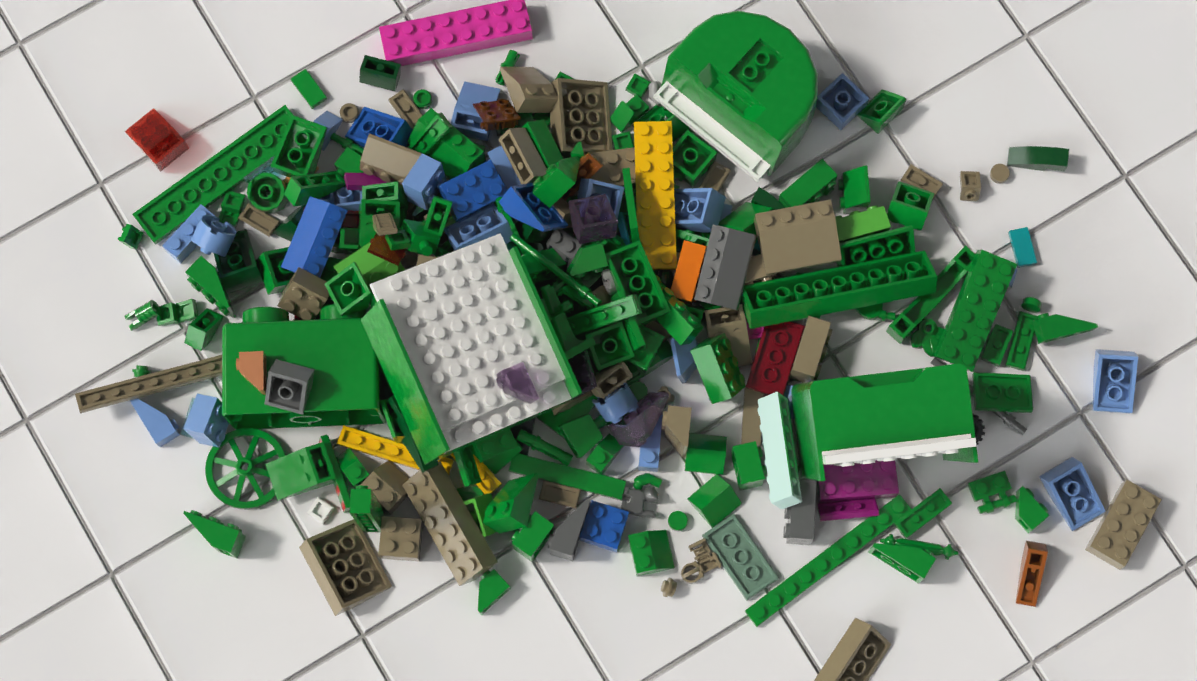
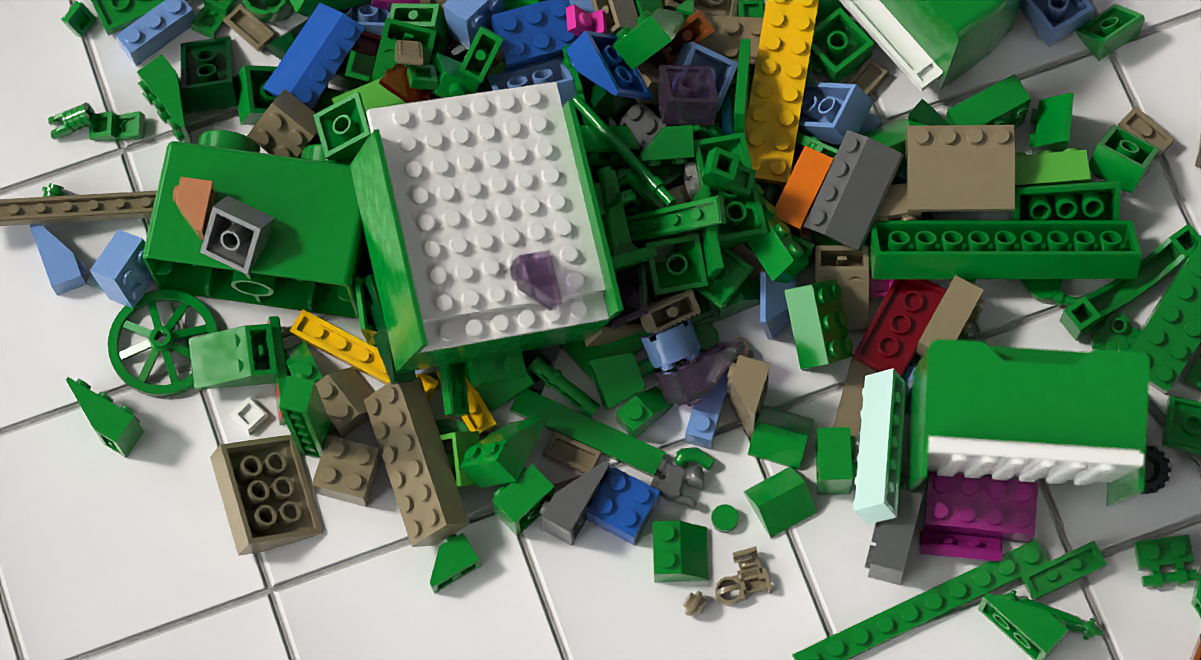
camera: 15 degrees right, 5 degrees down
(203, 329) = (144, 153): green slope -> none
(213, 235) = (184, 33): medium blue brick -> none
(507, 178) = (580, 20): none -> dark pink bracket
(635, 274) = (725, 172): none -> green brick
(740, 557) = (801, 582): sand green tile -> none

